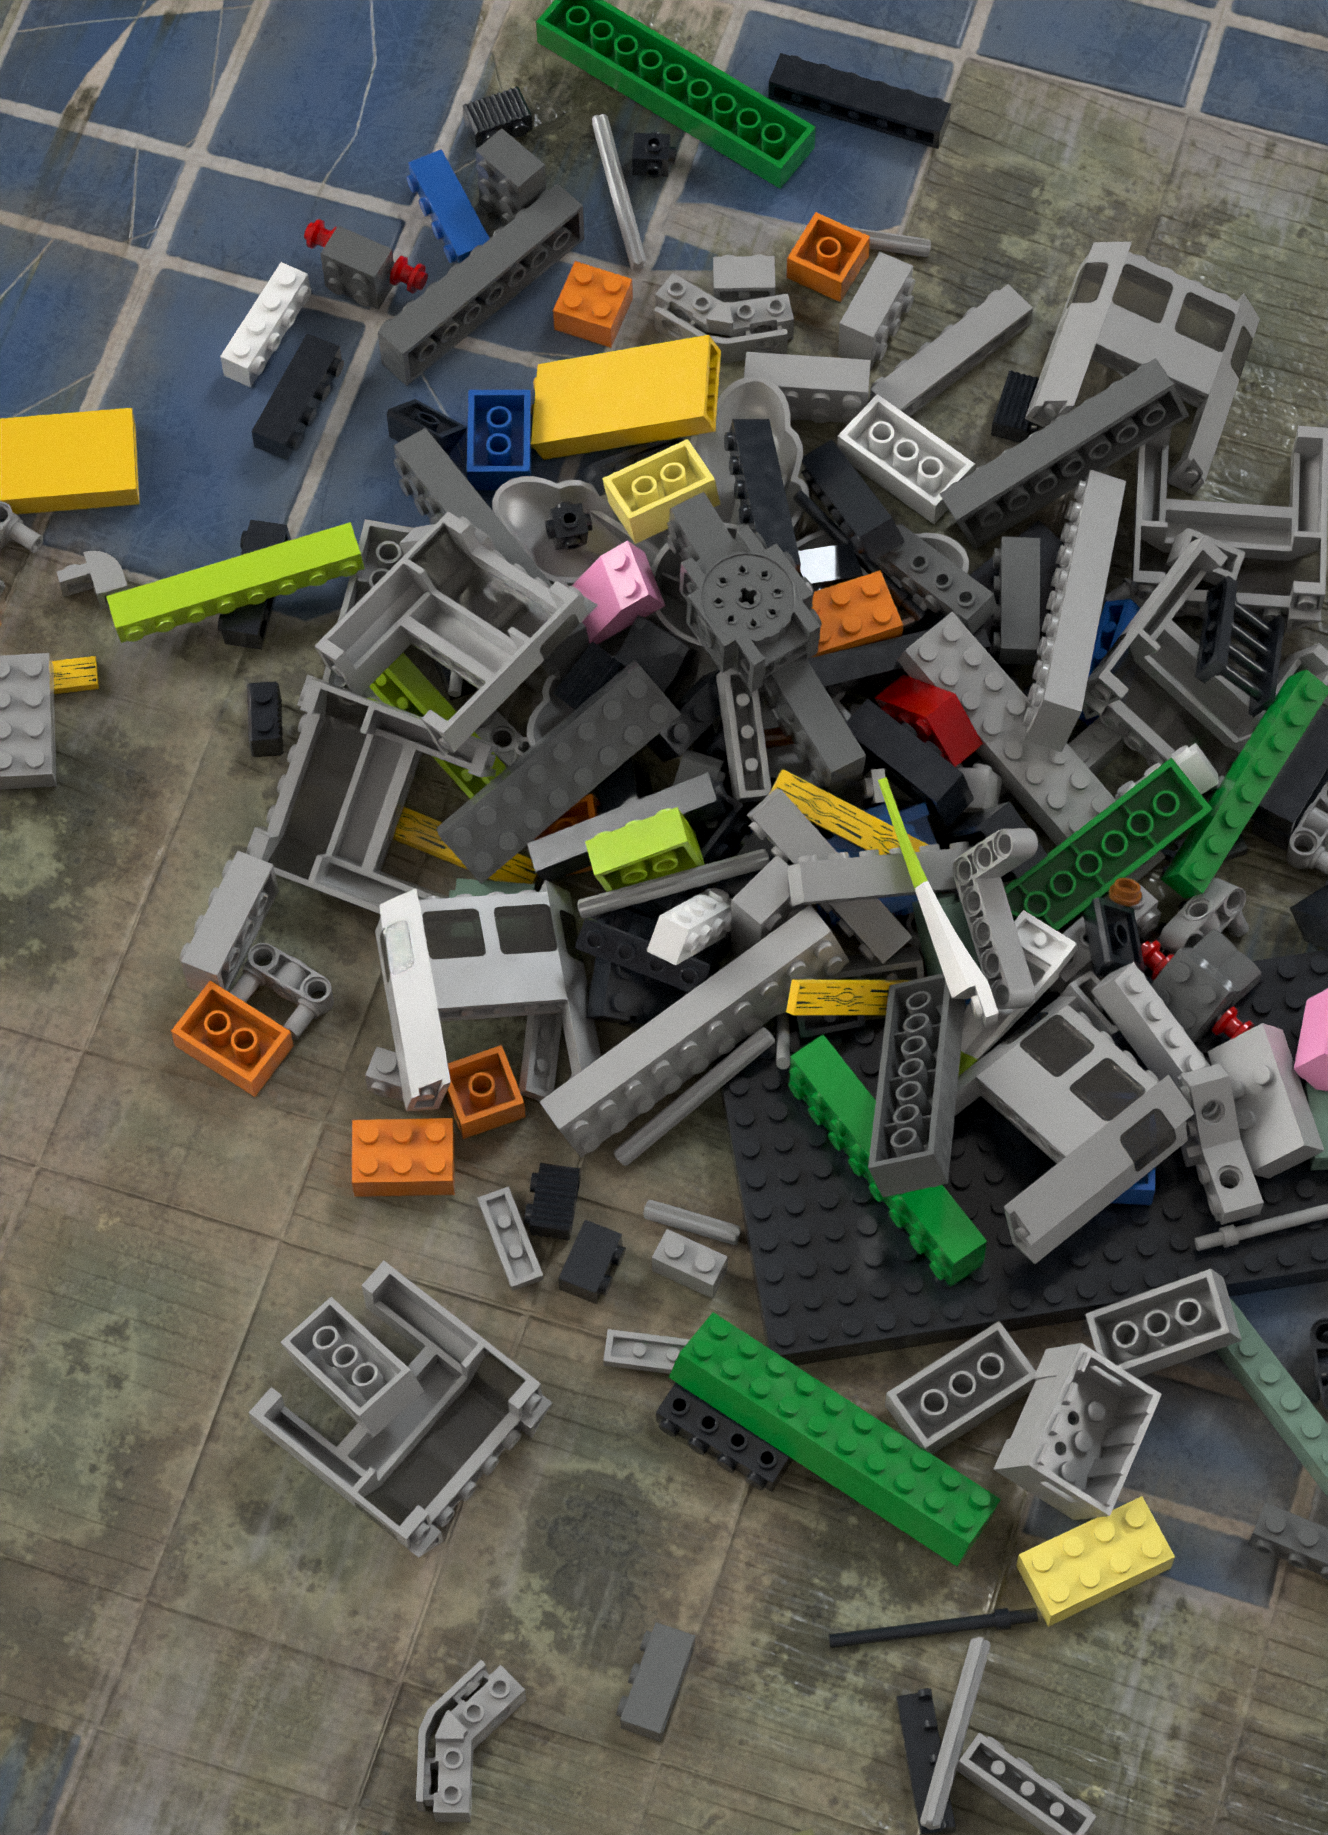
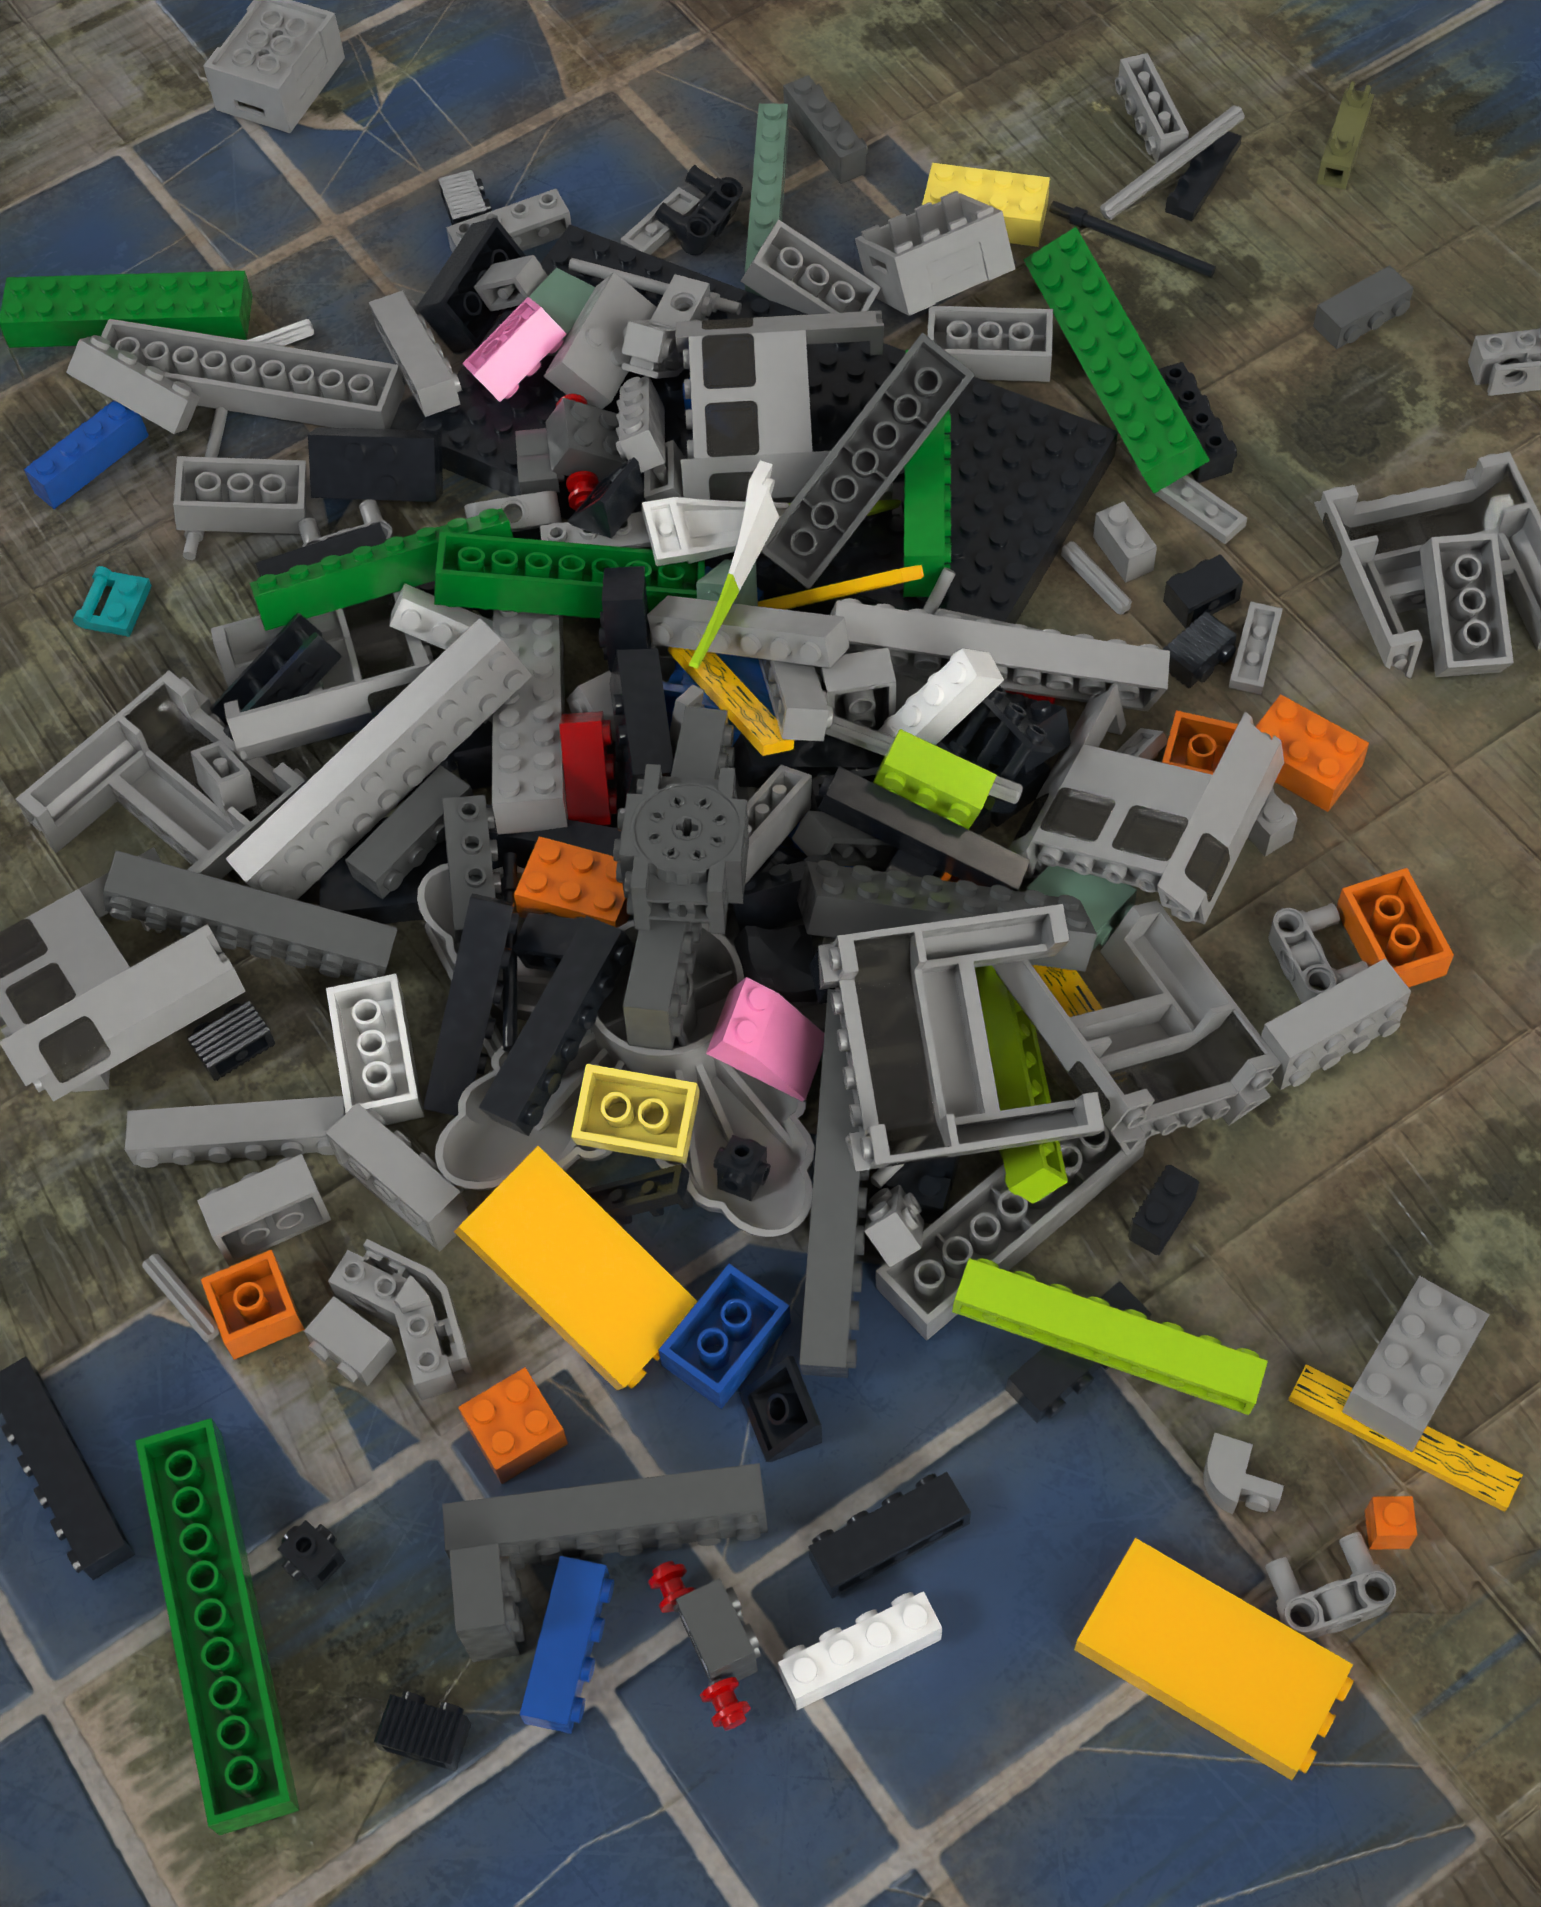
camera: 140 degrees left, 5 degrees down
(619, 192) = (374, 1551): light grey axle -> none
(989, 914) = (679, 569): light grey beam -> none
(1125, 892) = (565, 527): dark orange plate -> none

